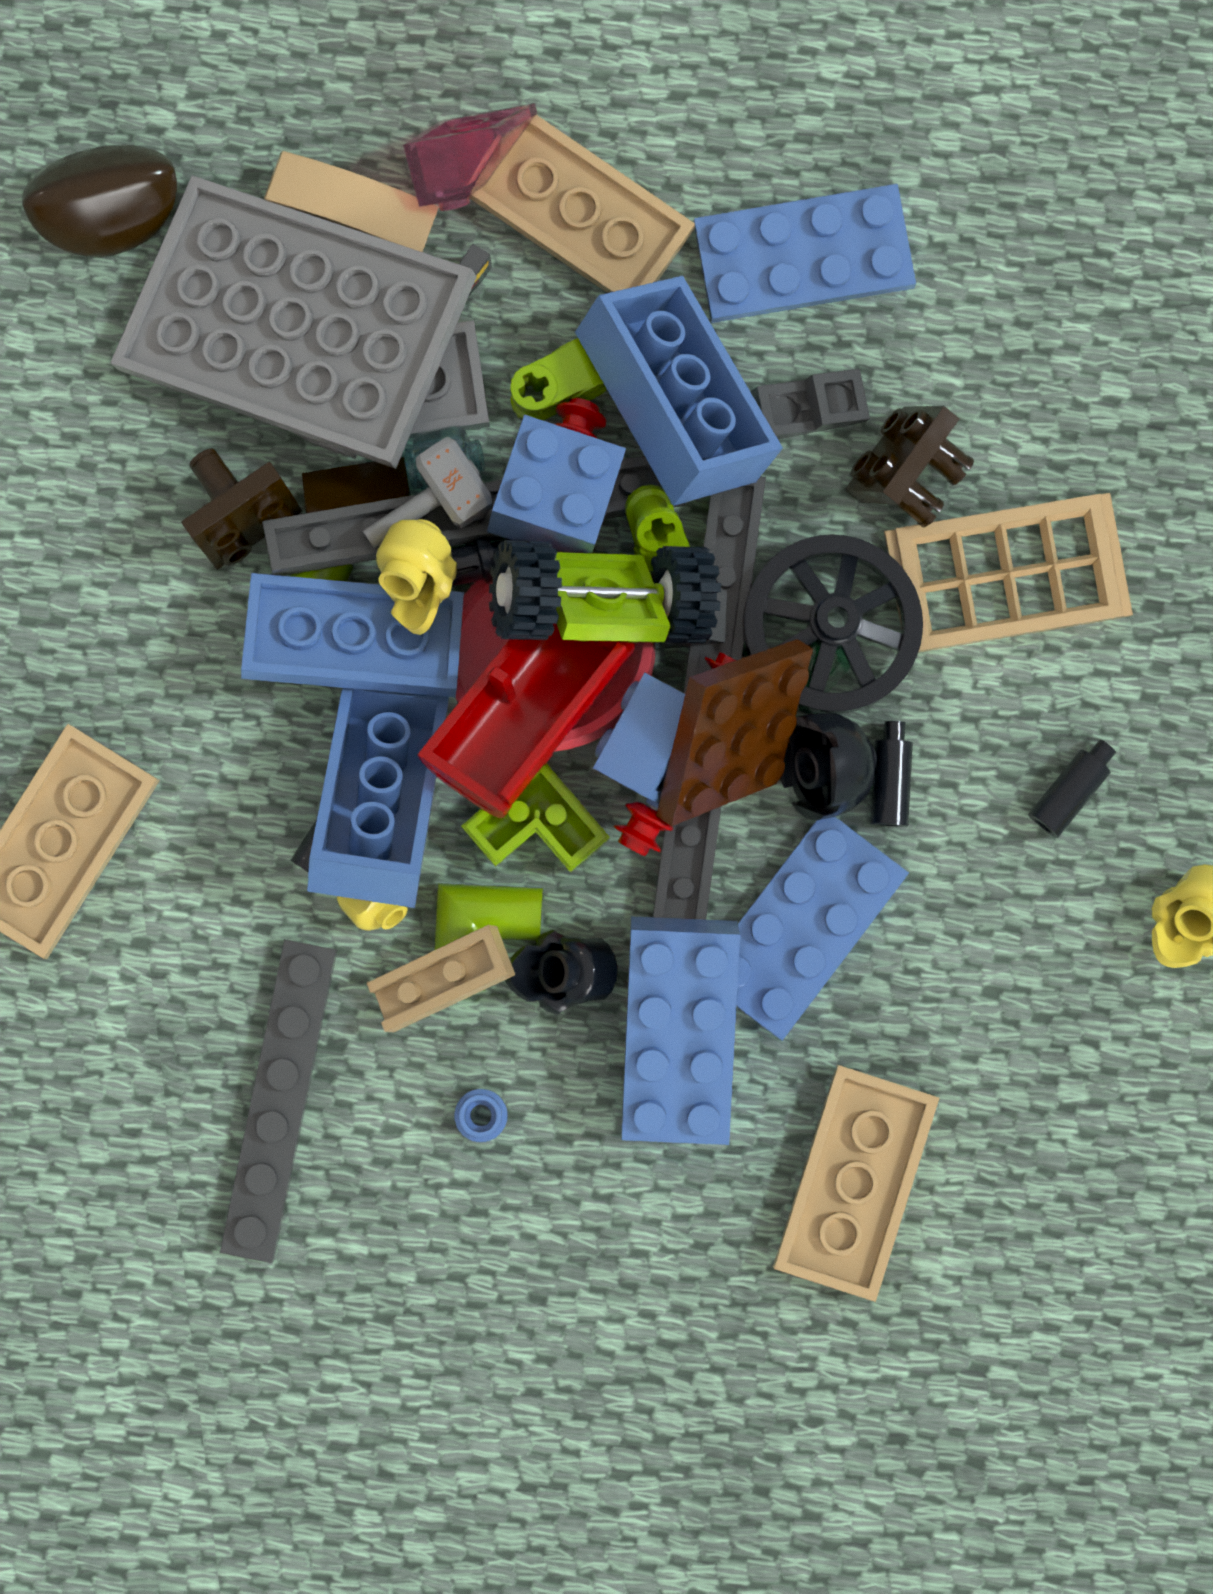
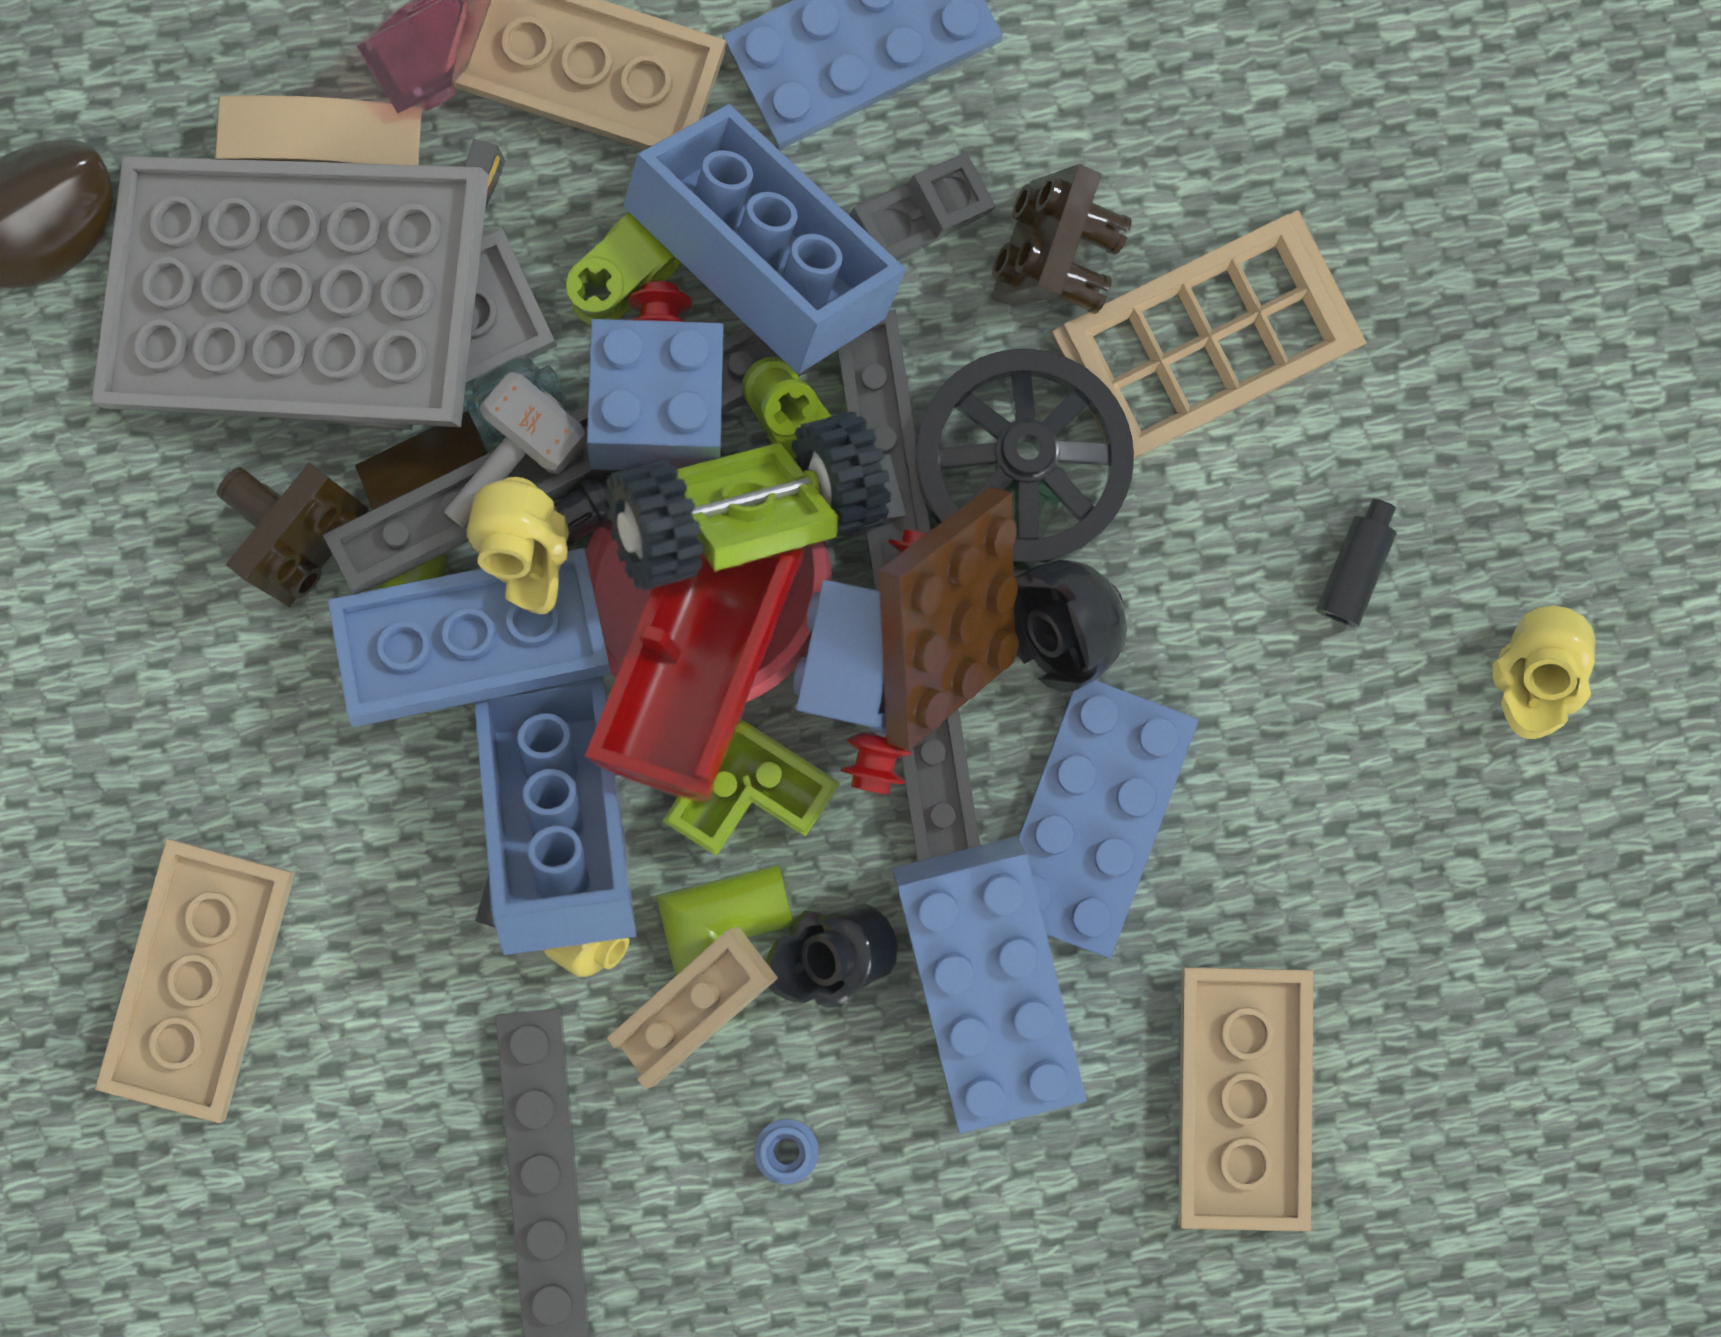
camera: 15 degrees left, 0 degrees up
(892, 777) = (1146, 614): black cylinder -> none

